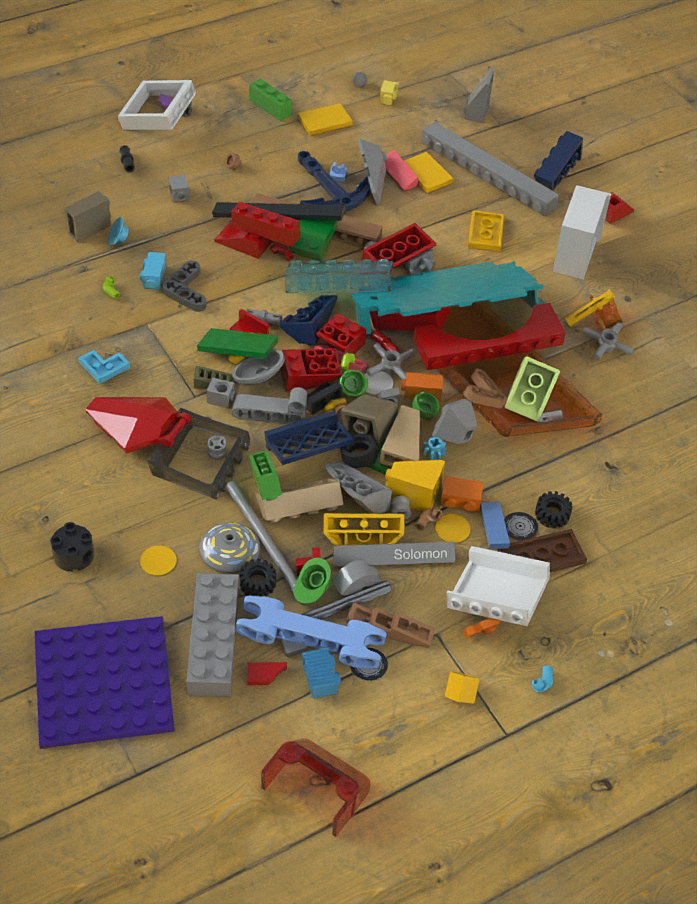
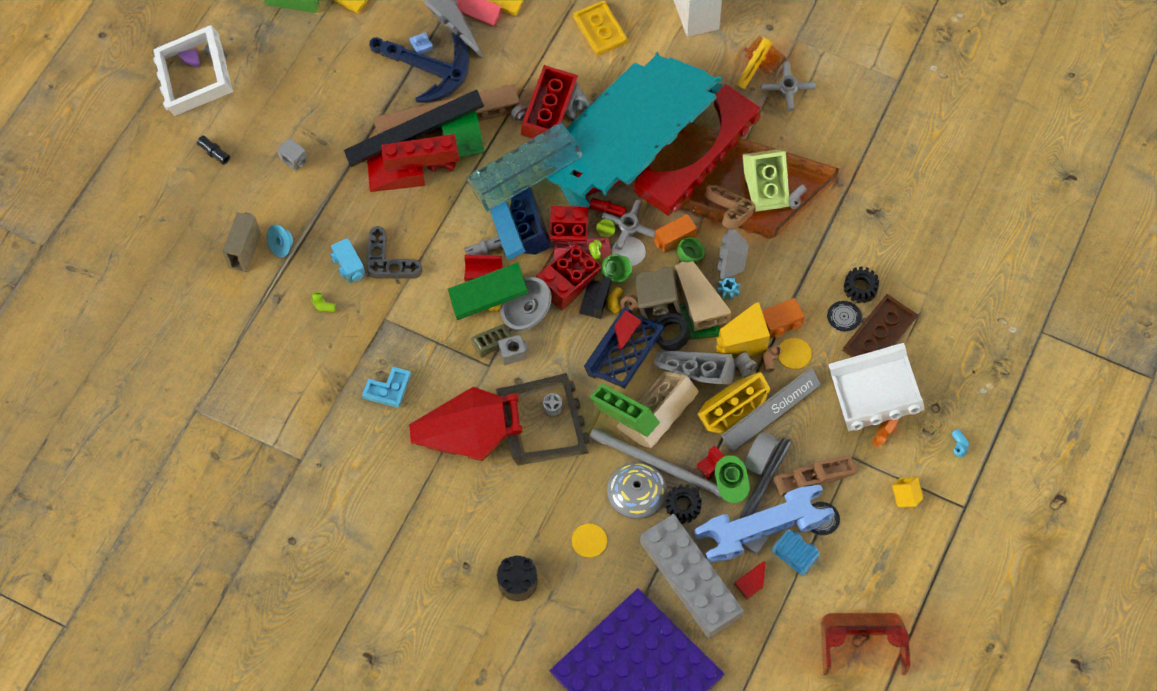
camera: 30 degrees left, 15 degrees up
(232, 160) = (314, 91): medium nougat tile -> none
(270, 408) = (568, 337): light grey beam -> none
(289, 311) = (507, 230): none -> dark azure tile
(321, 423) = (625, 327): none -> red tile
(370, 354) = (605, 228): none -> lime plate
(389, 394) = (652, 259): light grey tile -> none
(494, 525) = (828, 330): medium blue tile -> none

